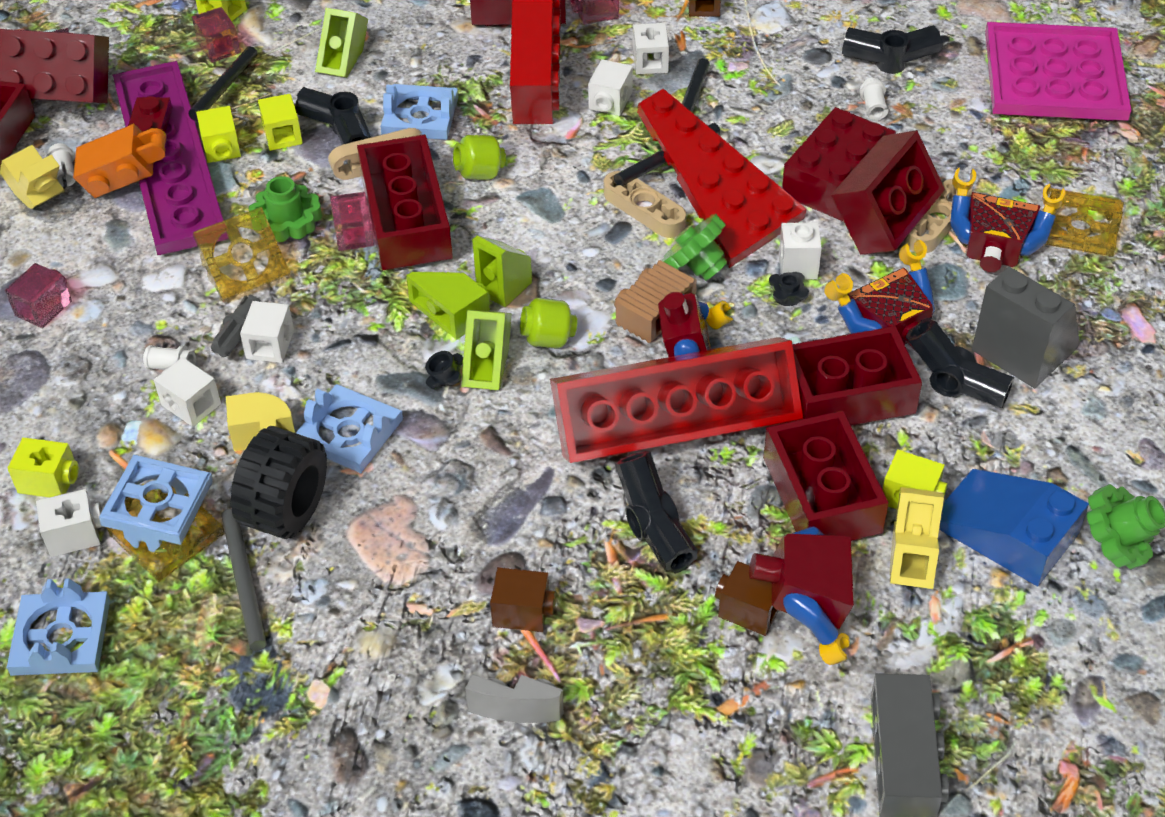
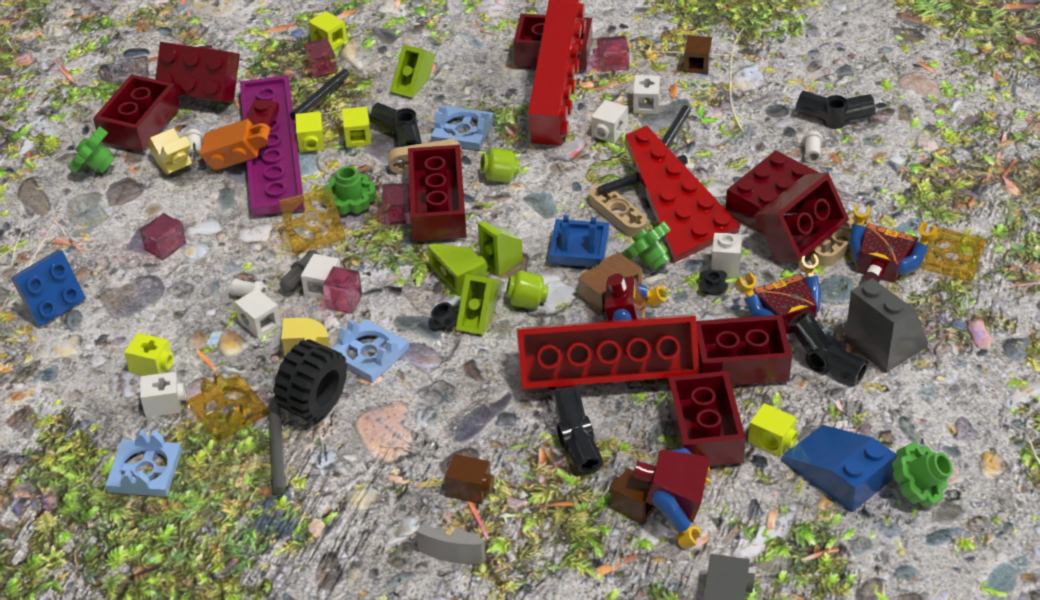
camera: 10 degrees right, 5 degrees down
(164, 476) = (248, 379): light blue piece -> none
(299, 347) = (342, 290): none -> clear pink brick
(603, 251) = (578, 242): none -> blue plate
(916, 538) = (764, 466): light yellow brick -> none
(1056, 71) = (962, 137): dark pink plate -> none

